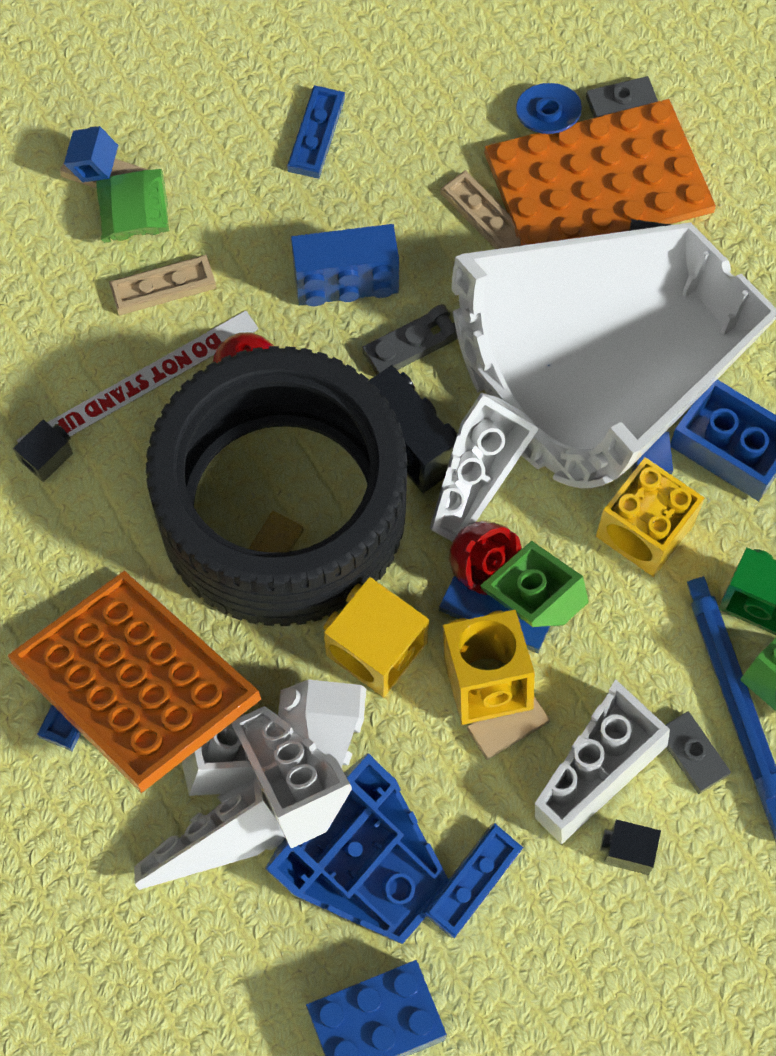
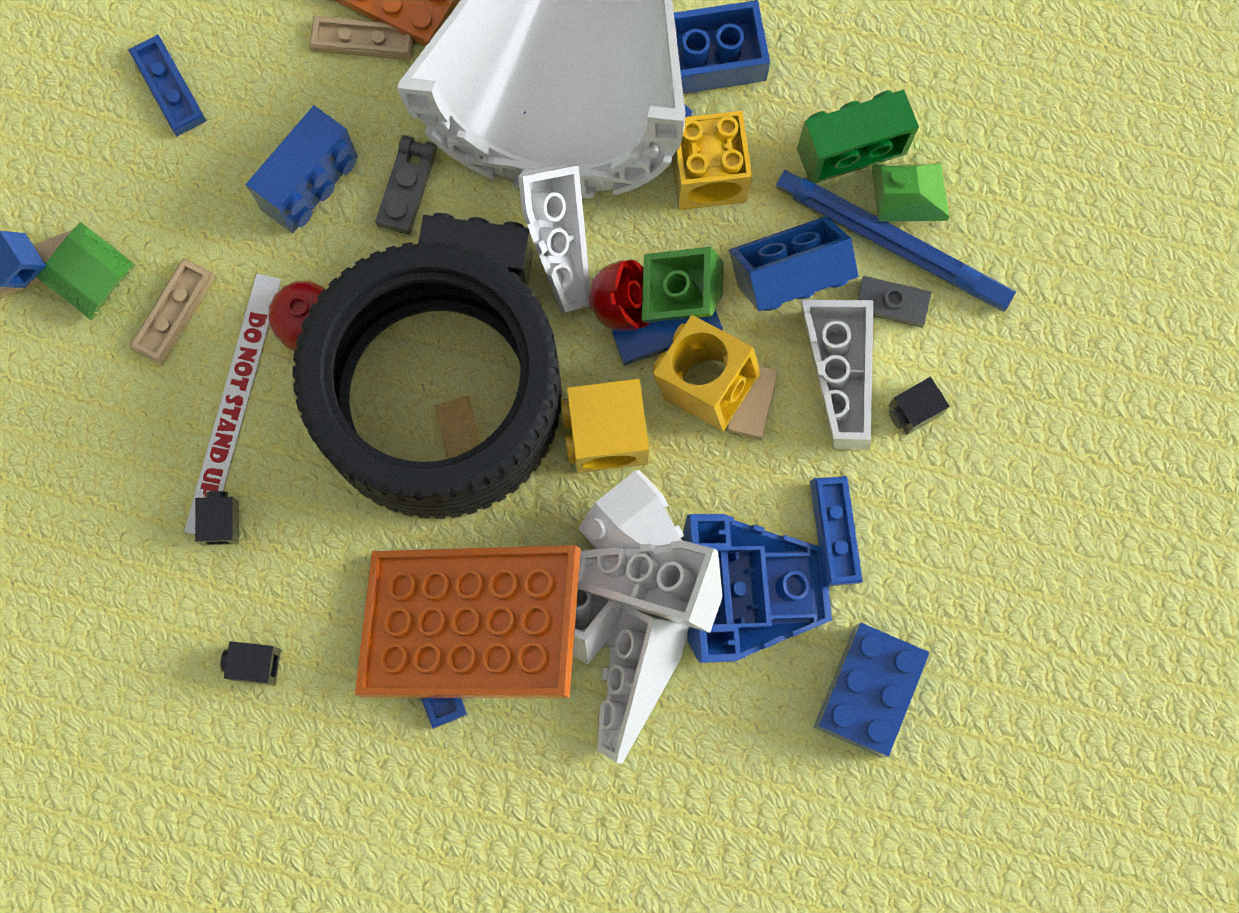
camera: 45 degrees left, 10 degrees up
(636, 648) = (794, 263): none -> blue brick

